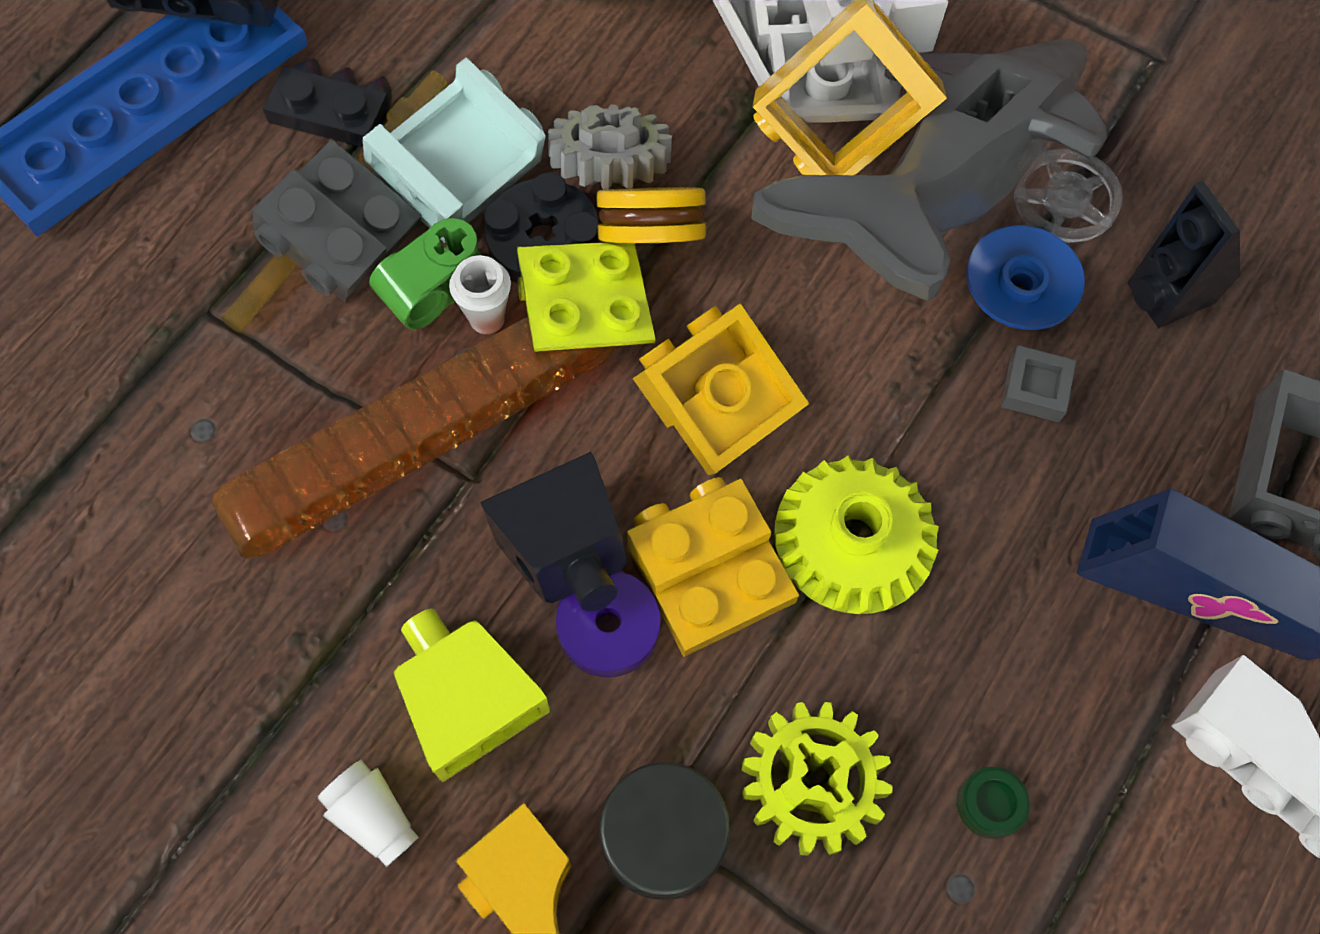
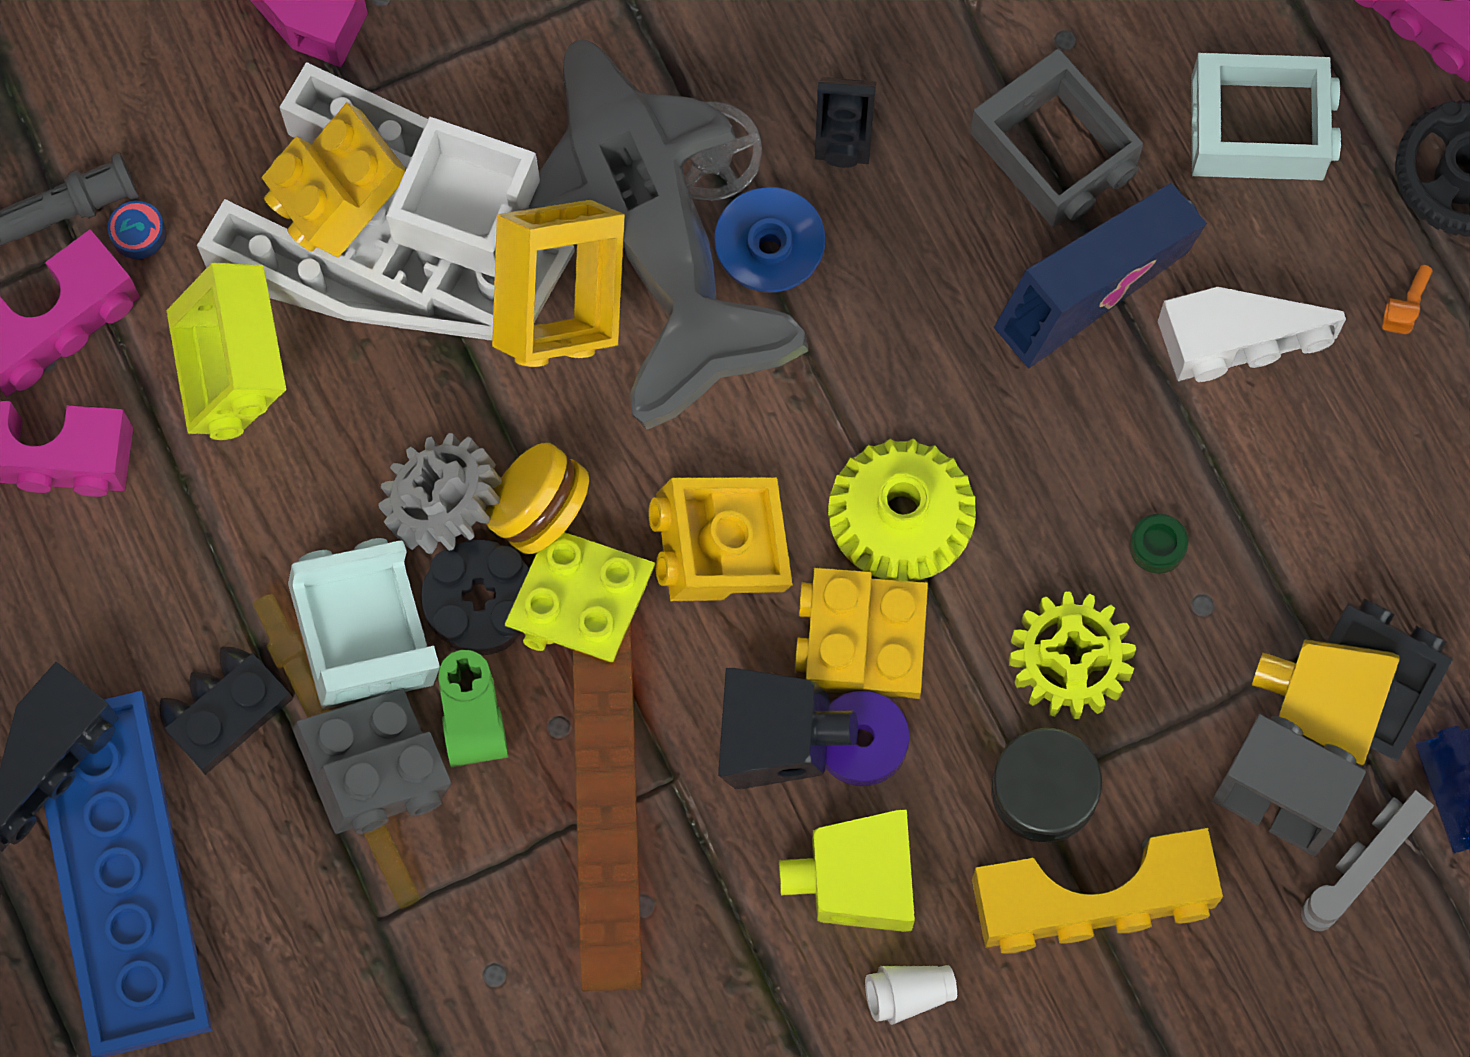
camera: 55 degrees left, 5 degrees up
(481, 292) = (522, 663): white cone -> none
(1038, 383) = (865, 292): dark grey plate -> none

